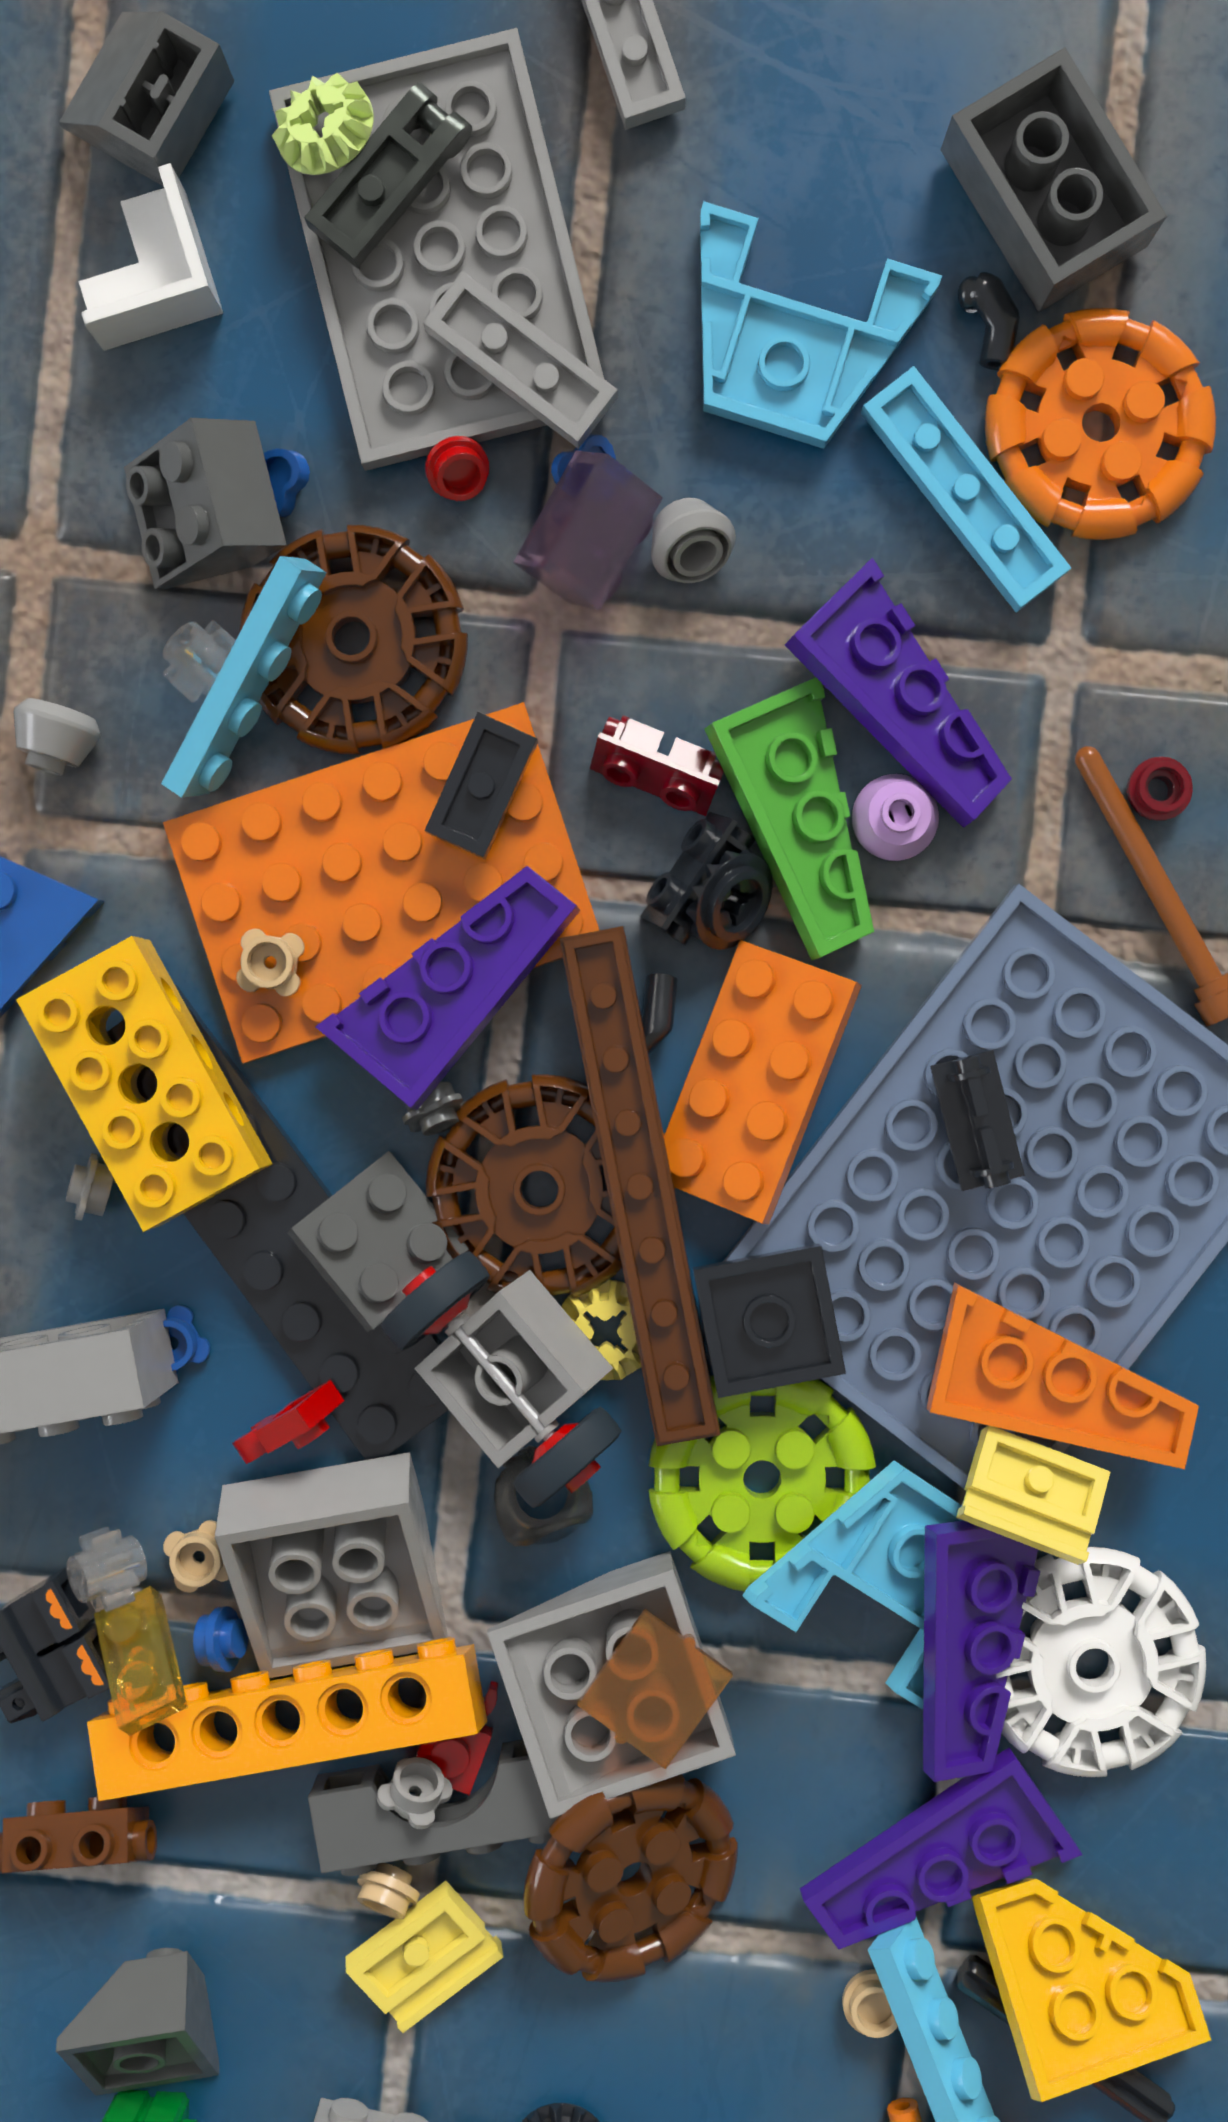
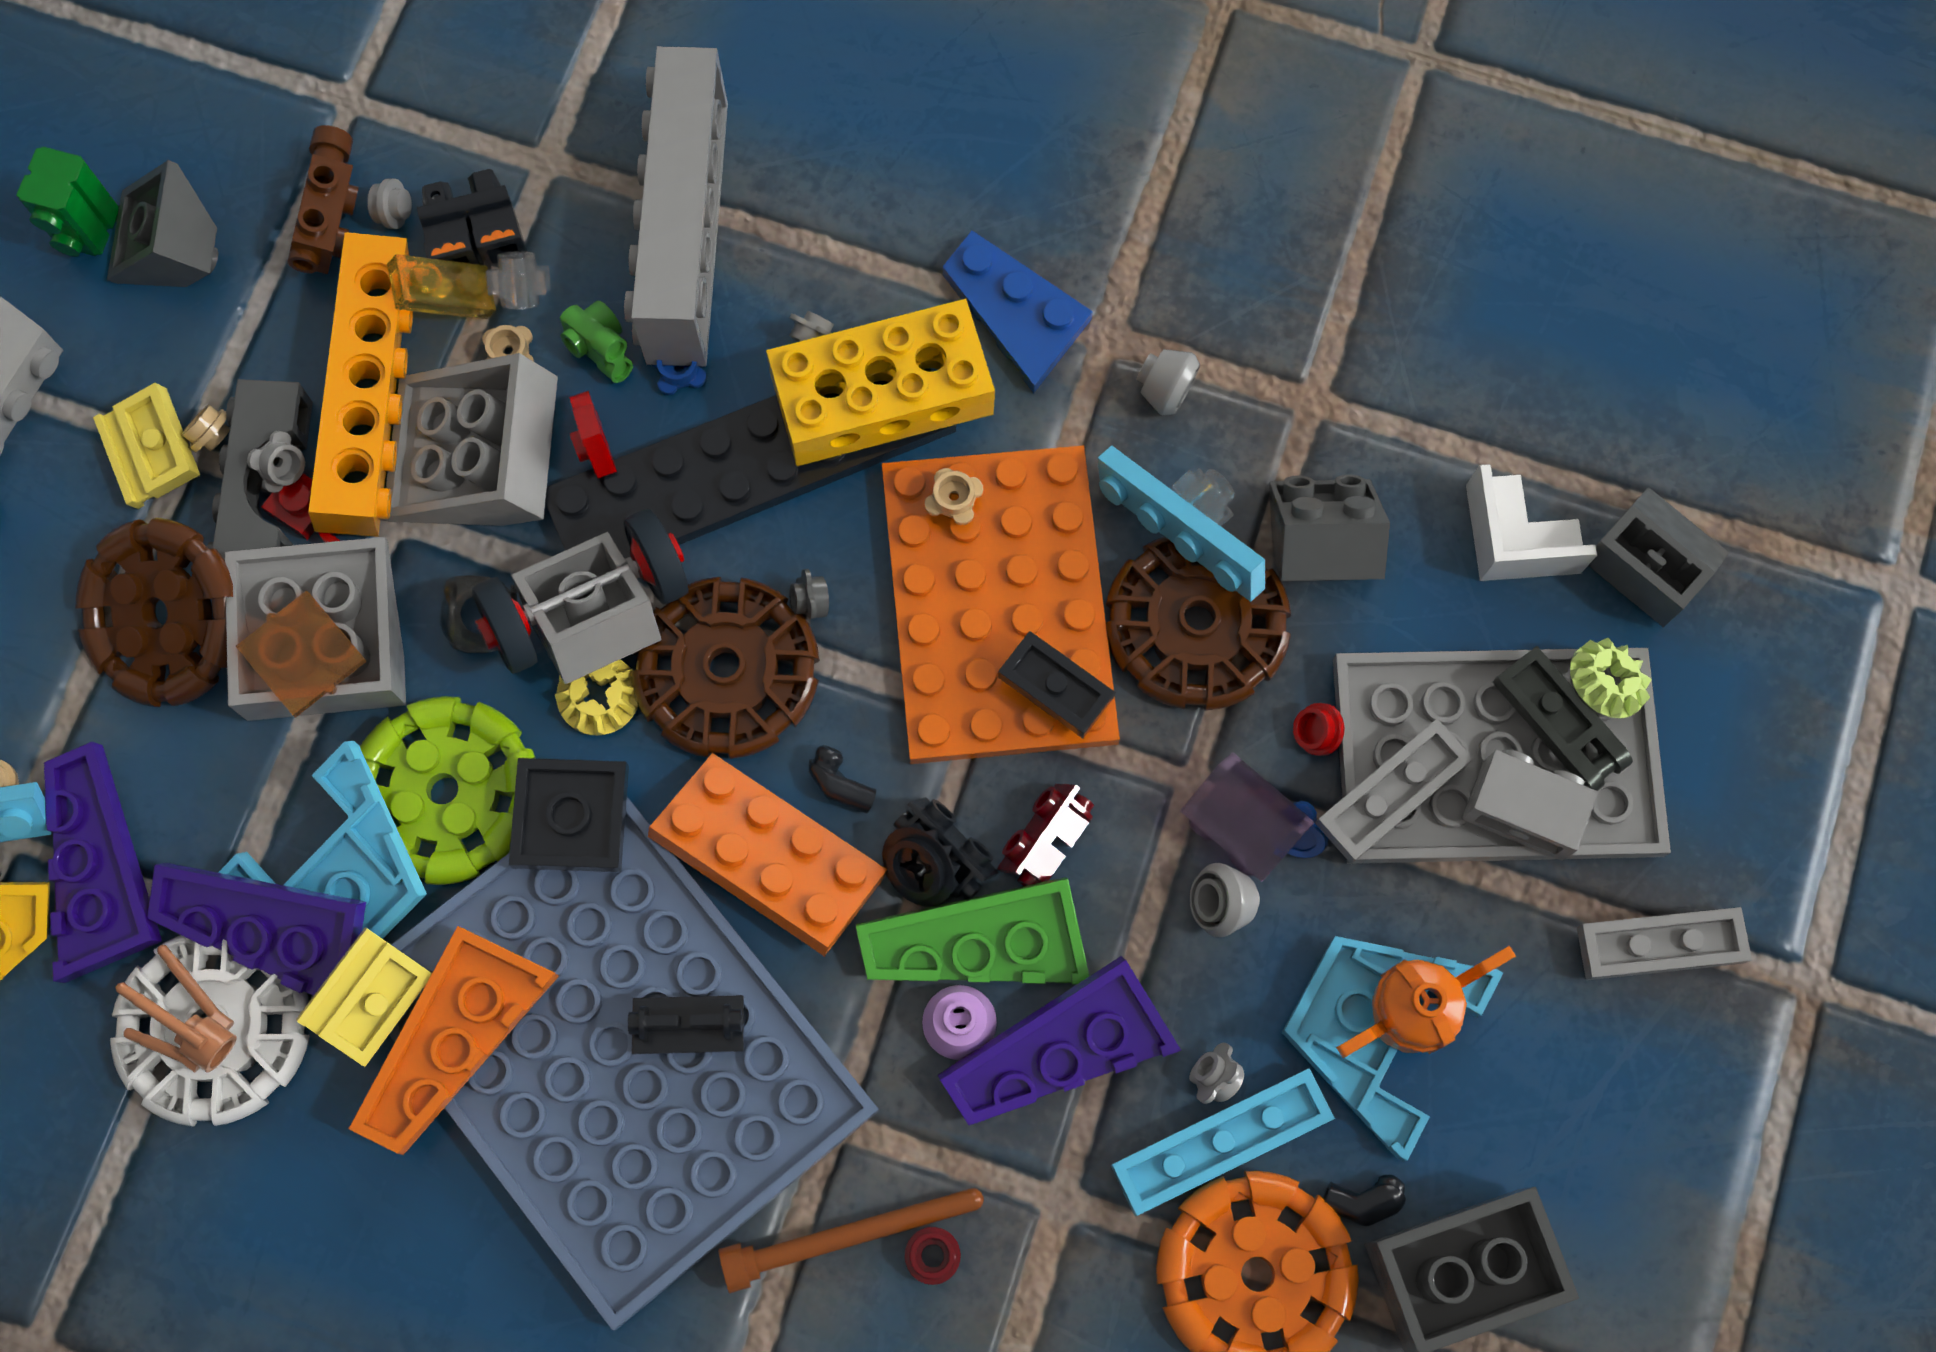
camera: 100 degrees right, 15 degrees down
(39, 1758) = (389, 203): none -> light grey plate
(155, 1456) = (598, 336): none -> bright green plate
(220, 1639) = (439, 348): blue plate -> none
(288, 476) = (1336, 594): blue piece -> none
(374, 1239) = (719, 528): dark grey plate -> none
(439, 1001) = (889, 611): dark purple wing -> none
(501, 194) = (1530, 804): none -> light grey brick
(640, 1186) = (707, 739): reddish brown tile -> none
(770, 303) = (1402, 1019): none -> orange helmet
(892, 510) = (1217, 1075): none -> light grey plate
(1123, 1666) = (201, 1041): none -> nougat plant

